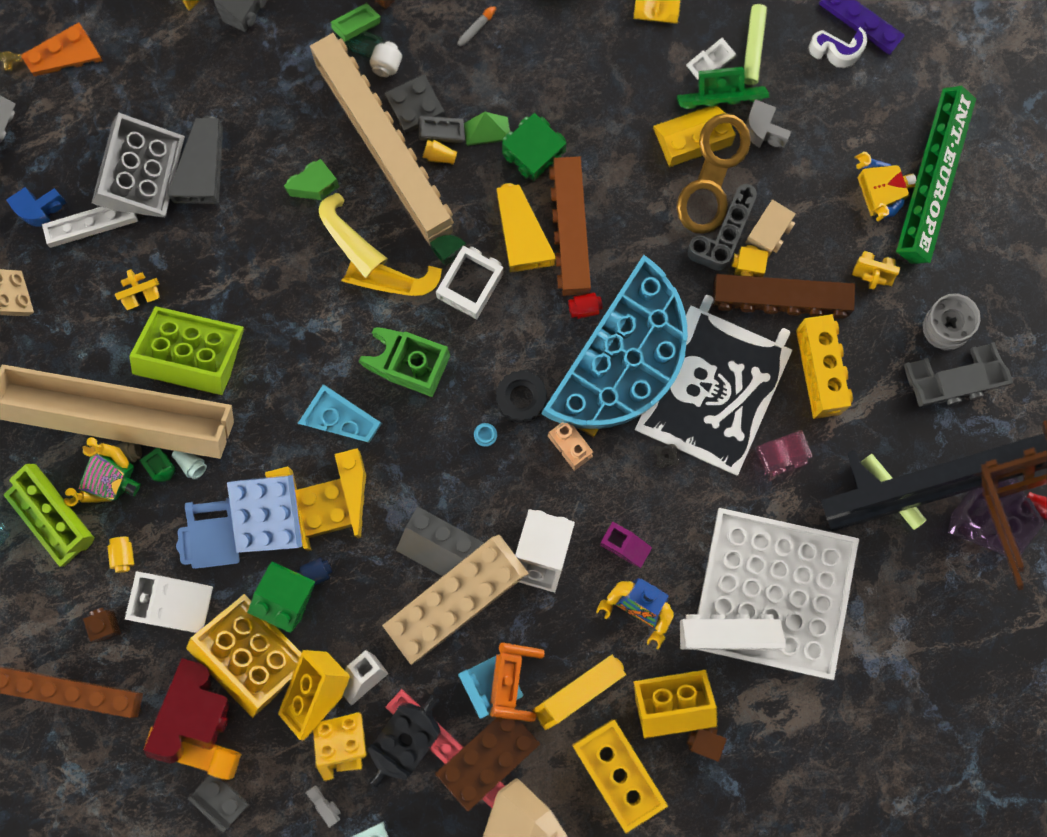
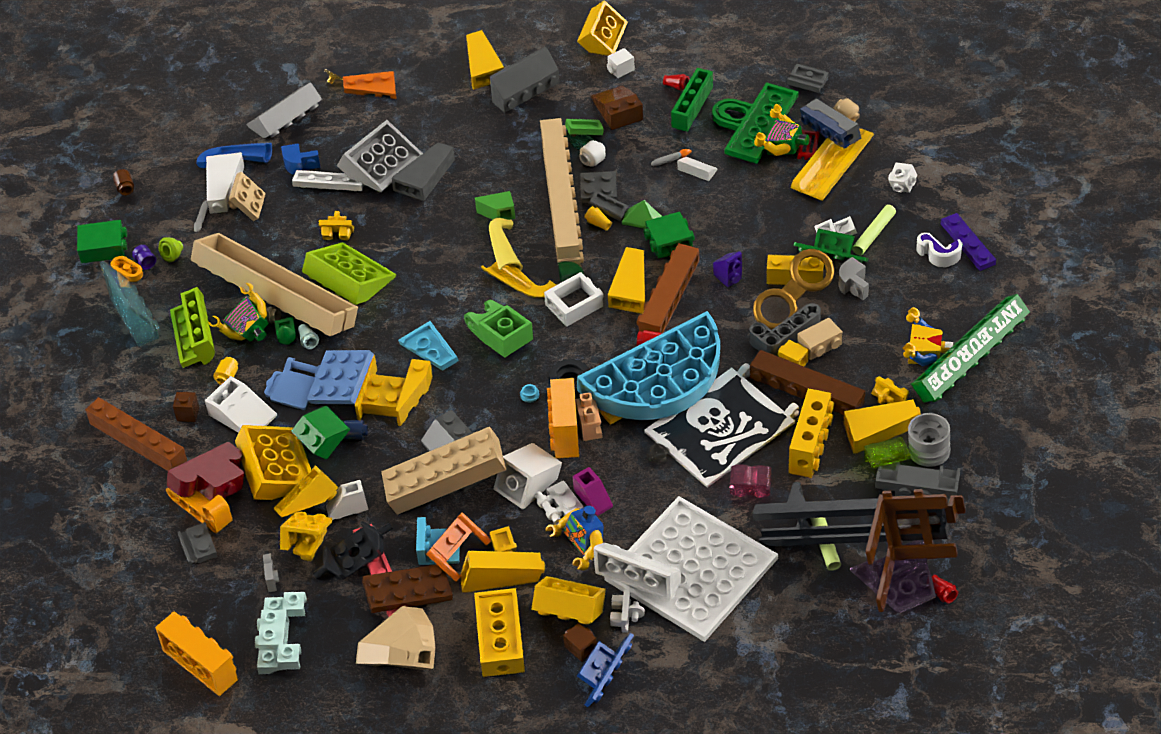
camera: 30 degrees right, 30 degrees down
(513, 30) = (696, 168): none -> white slope
(551, 467) = (563, 418): none -> light orange brick
(561, 652) = (502, 540): none -> yellow bracket
(594, 561) = (562, 497): none -> white plate
(624, 168) = (728, 268): none -> dark purple slope
(737, 693) = (623, 602): none -> white hips
(746, 765) = (600, 665): none -> bracket
(880, 320) = (878, 423): none -> yellow slope
(912, 357) = (886, 452): none -> clear neon green bracket

